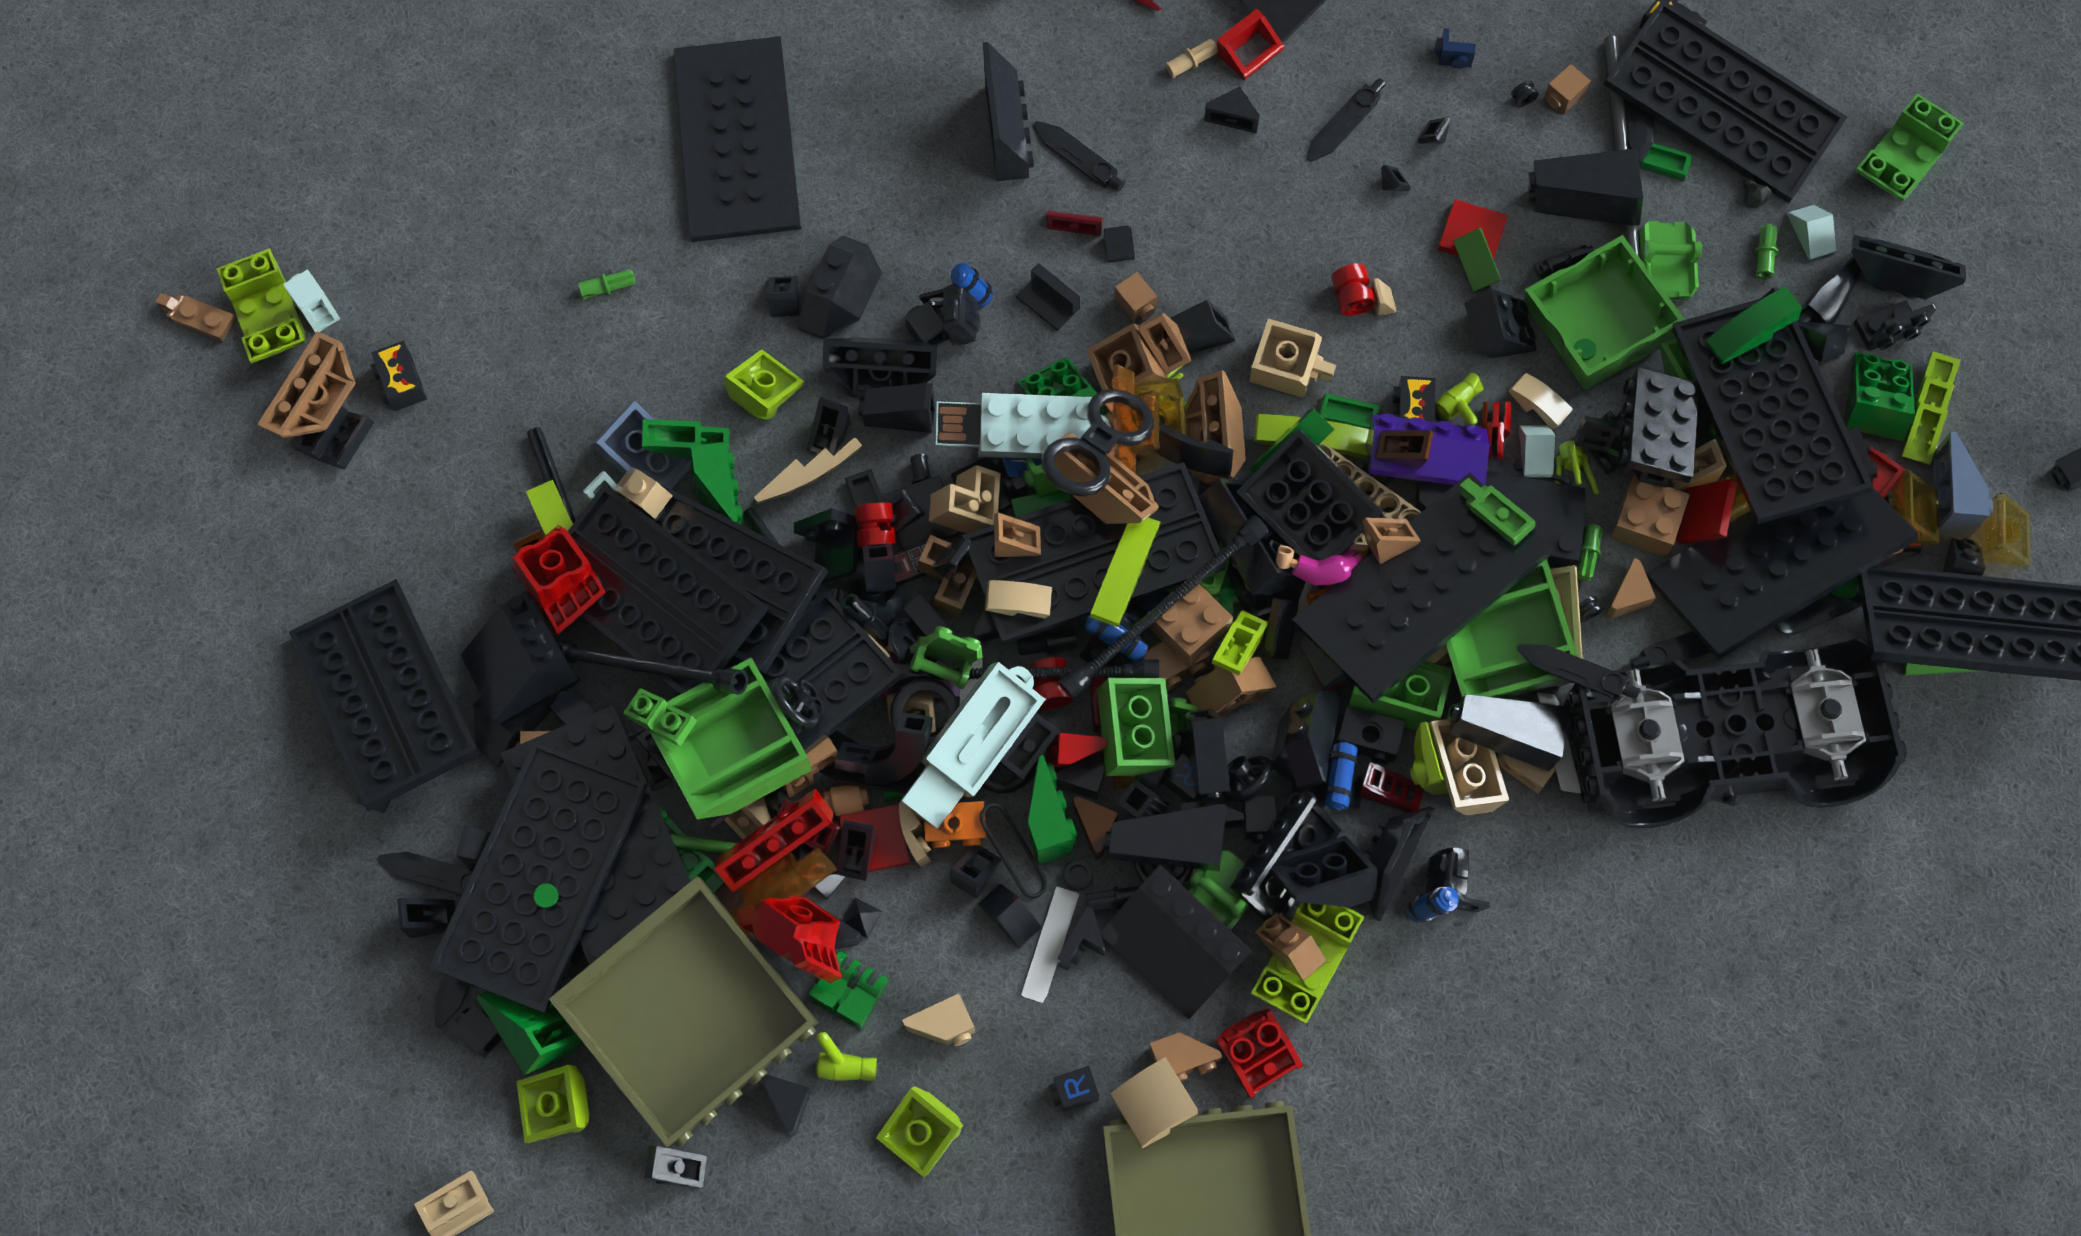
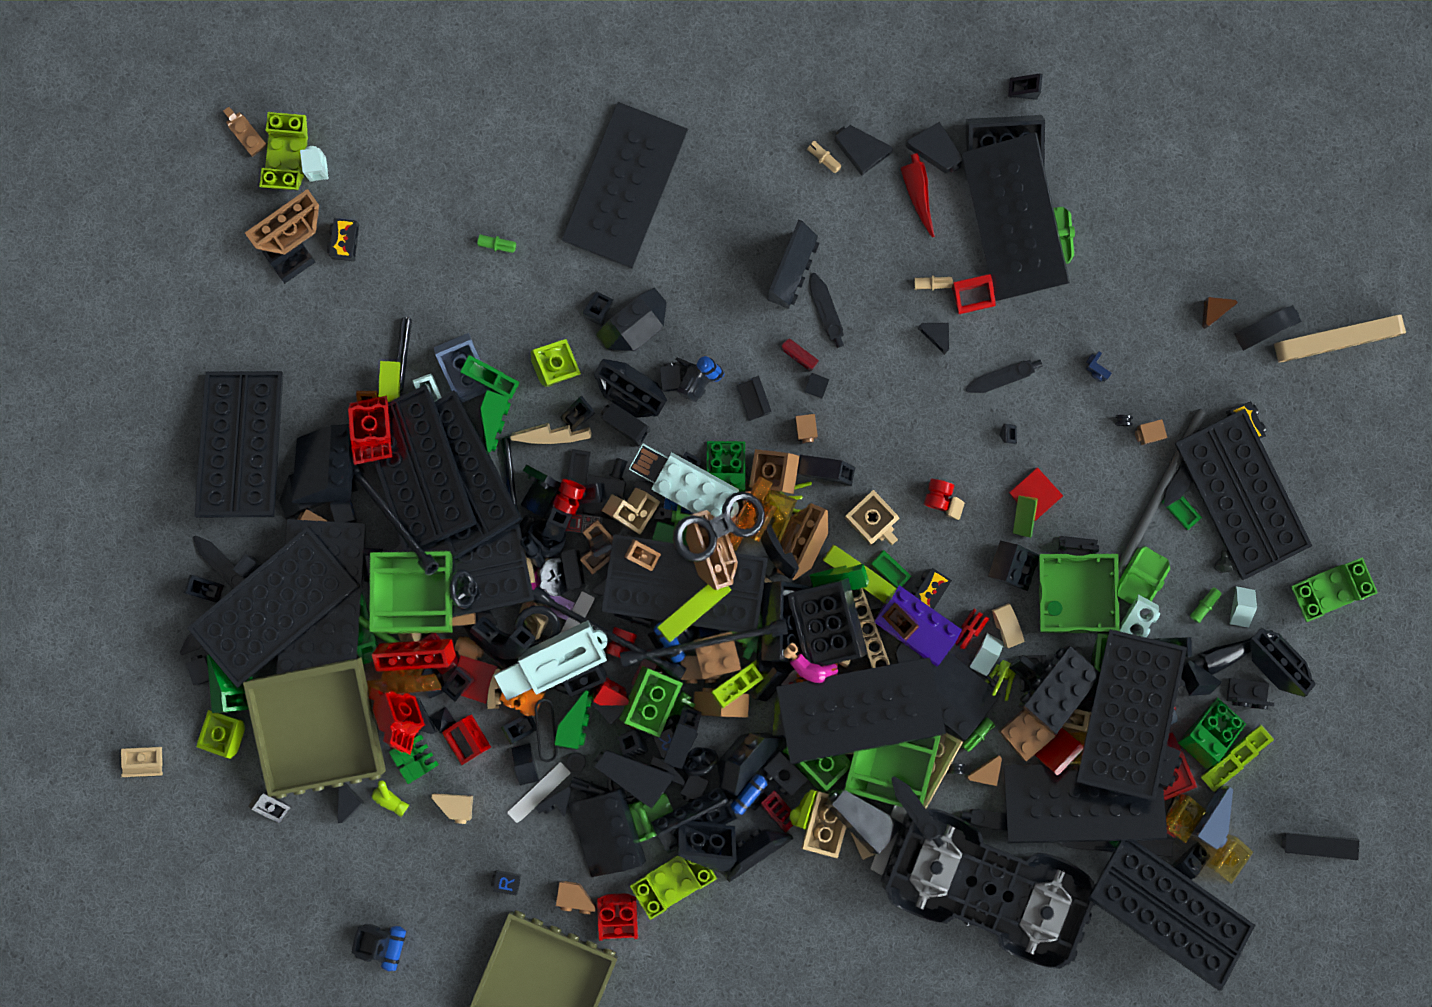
camera: 25 degrees right, 15 degrees up
(546, 895) = (270, 622): green piece -> none
(643, 492) = (444, 401): tan slope -> none
(660, 717) = (379, 561): bright green slope -> none
(915, 912) = (473, 736): none -> red tile
(920, 1130) = (411, 859): lime slope -> none
(951, 651) = (558, 589): bright green shield -> none
(1018, 597) = (623, 592): tan slope -> none
(1094, 822) = (600, 740): reddish brown slope -> none
(1154, 1102) = (542, 917): tan slope -> none
(1165, 342) = (802, 474): medium nougat slope -> none
(1291, 945) = (666, 871): medium nougat slope -> none
(1389, 537) = (859, 672): medium nougat slope -> none
(1435, 131) = (1053, 415): black slope -> none
(1445, 887) = (772, 886): black piece -> none
(1456, 400) = (957, 598): lime piece -> none
(1497, 511) = (927, 694): bright green hinge -> none
(1589, 187) = (1121, 510): black slope -> none
(1689, 302) = (1134, 616): none -> light aqua brick
(1755, 325) = (1152, 662): green slope -> none

